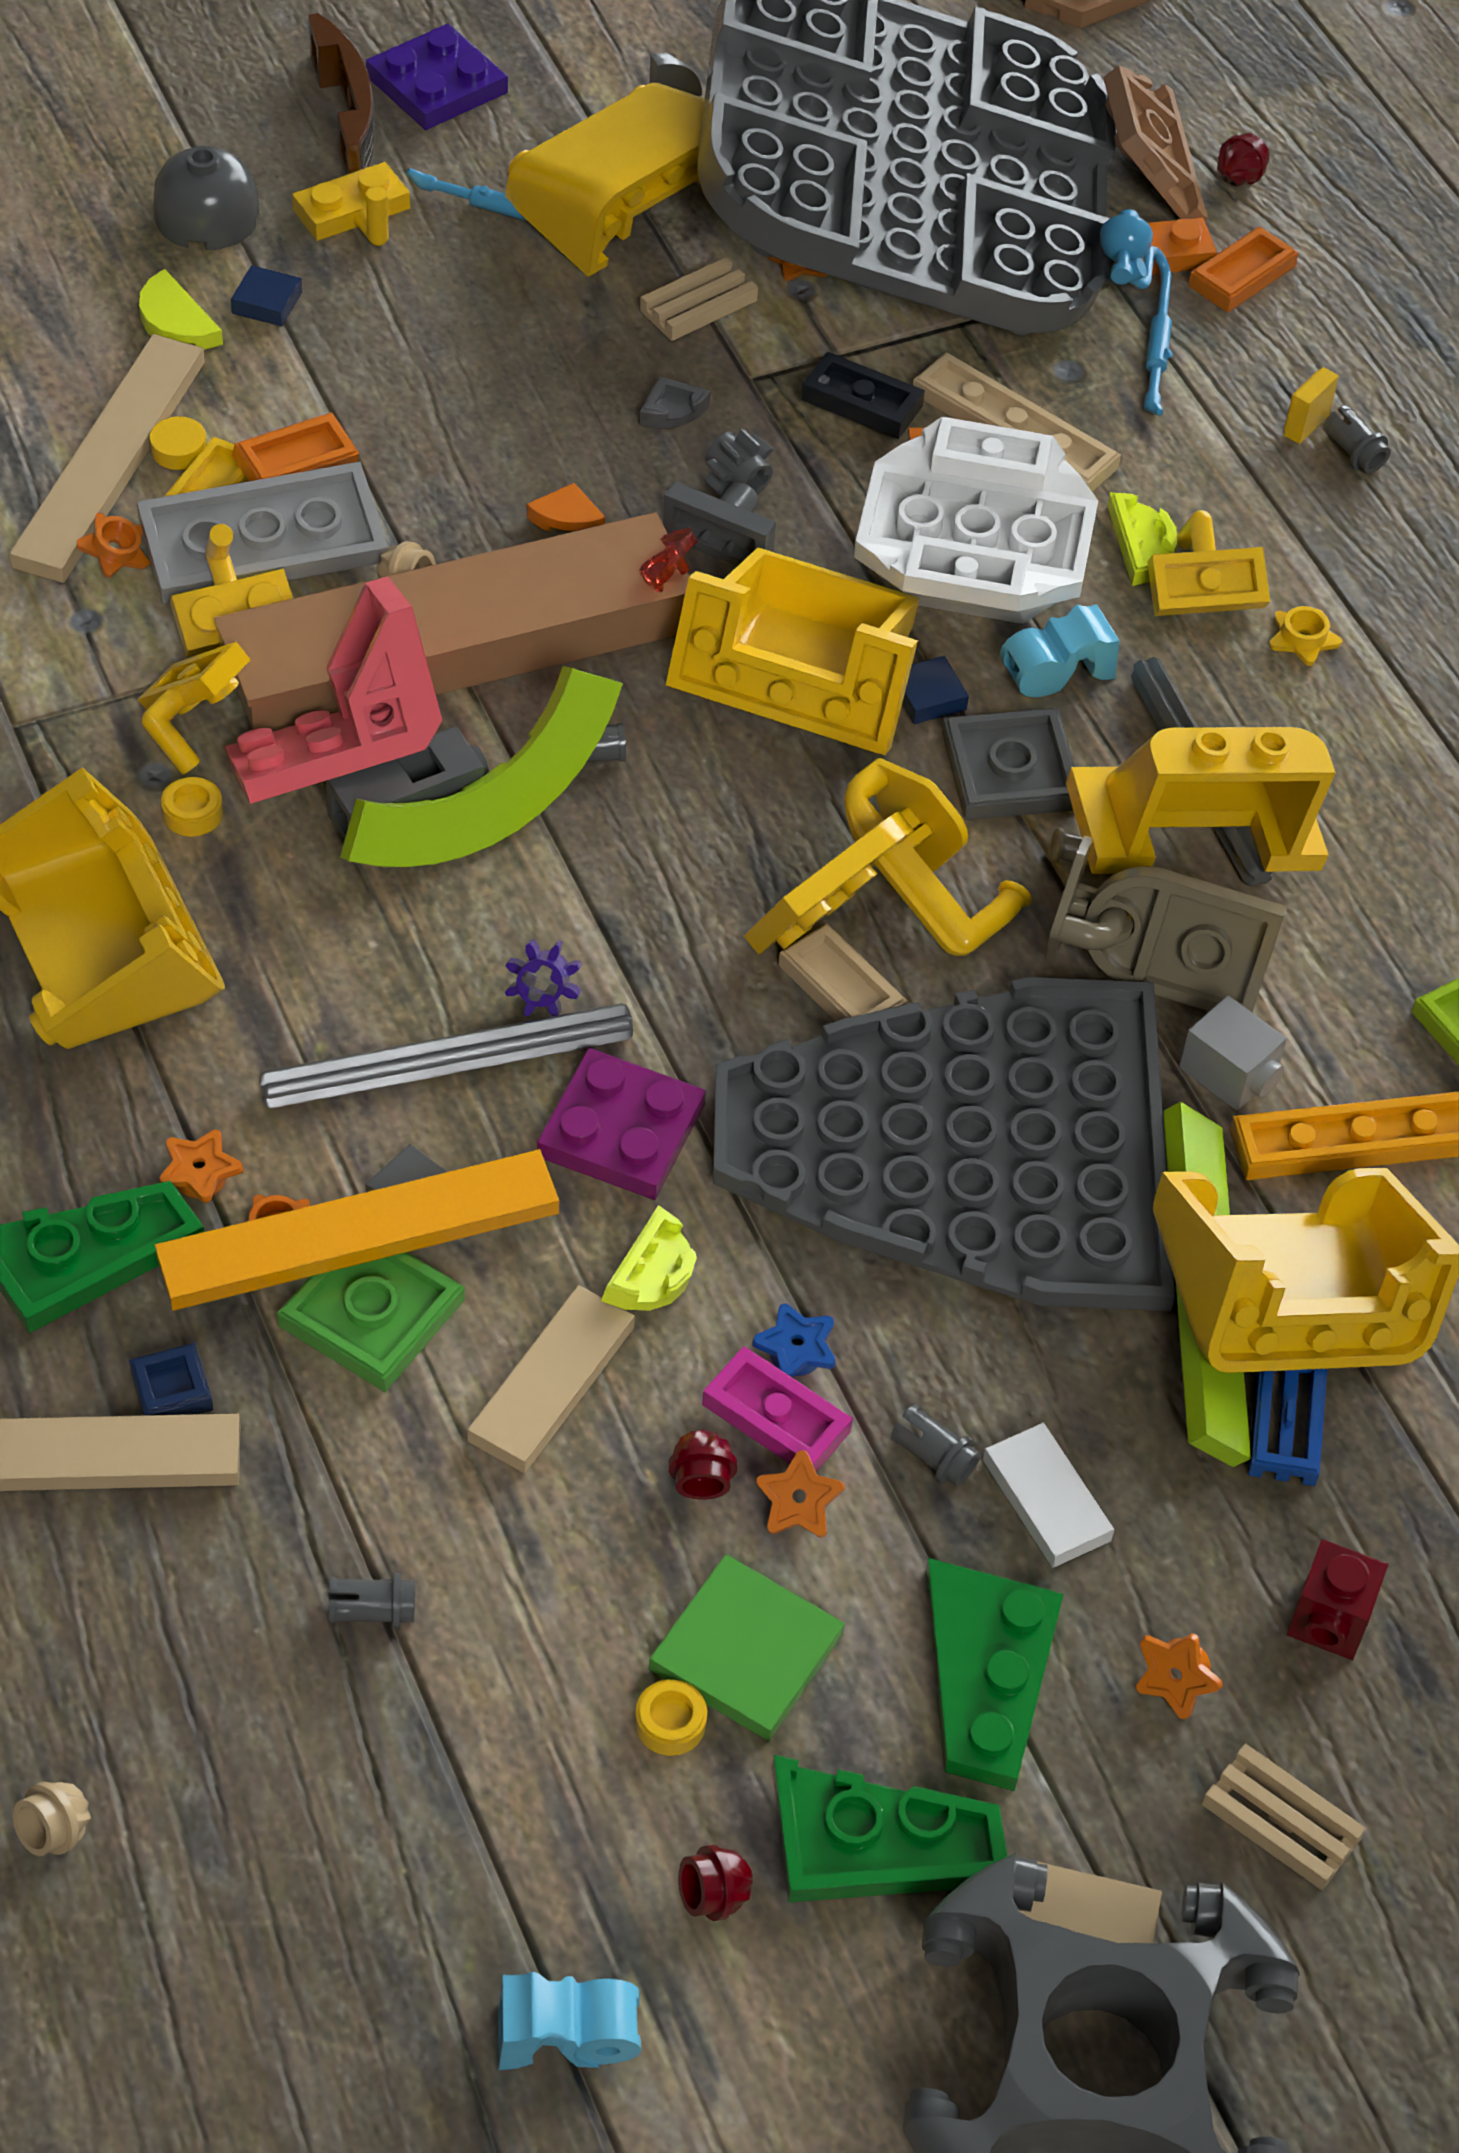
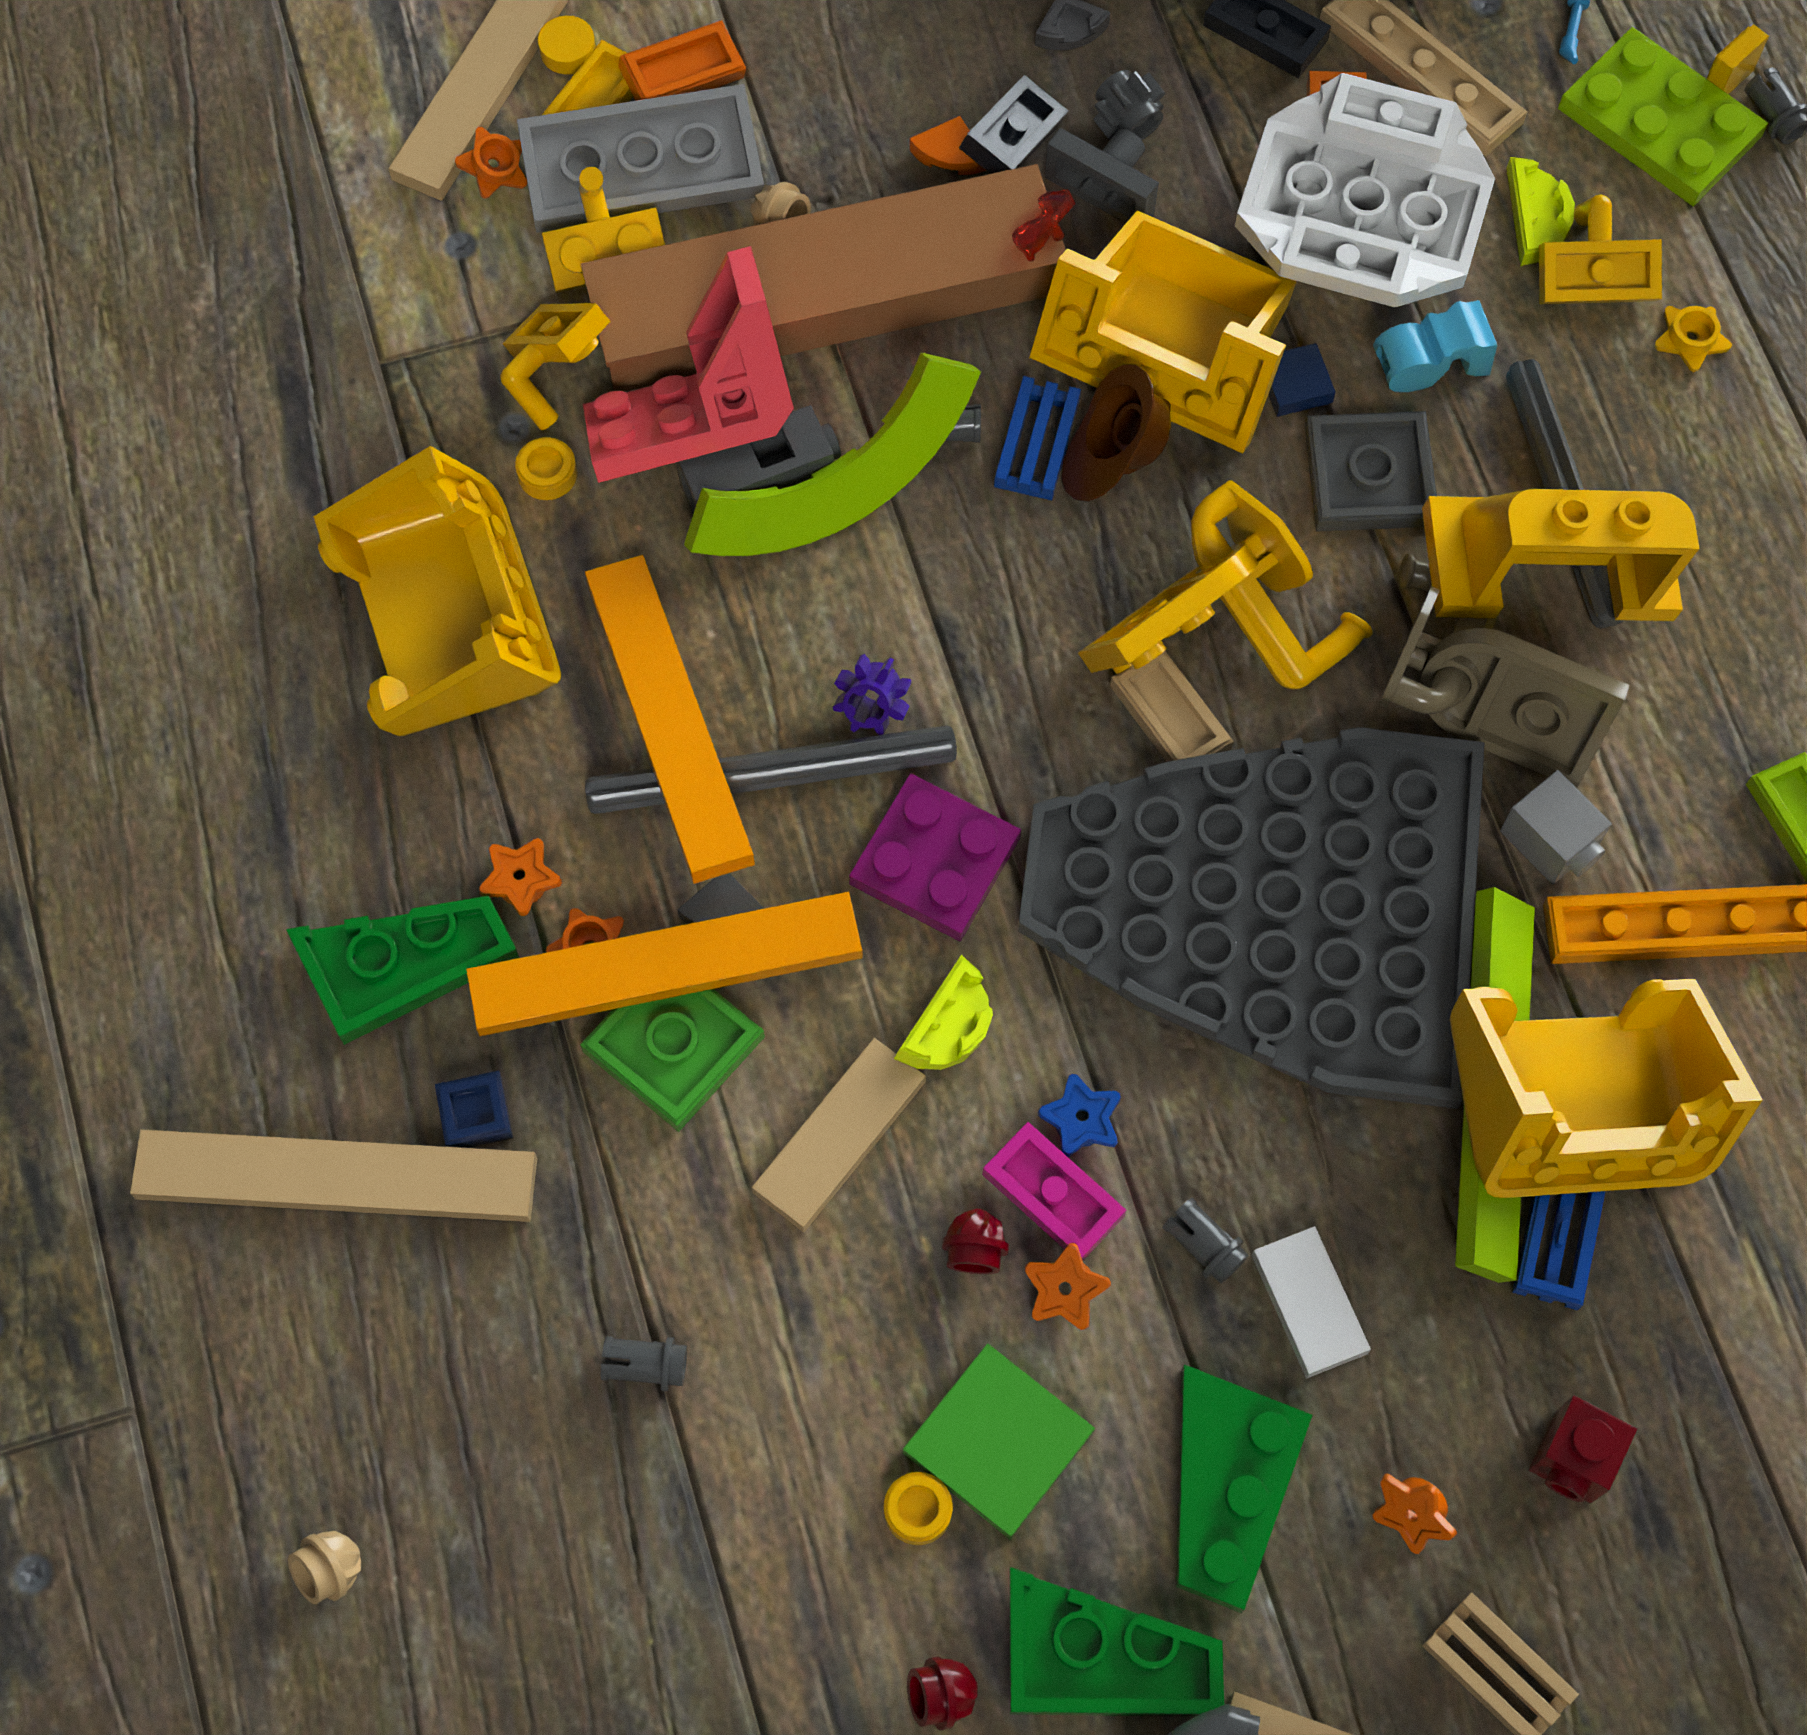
camera: 10 degrees right, 15 degrees up
(341, 1012) = (669, 720): none -> light orange tile
(628, 487) = (1013, 127): none -> plate
(687, 719) = (1047, 397): none -> blue tile
(763, 739) = (1118, 435): none -> reddish brown piece
(1249, 454) = (1662, 116): none -> lime plate

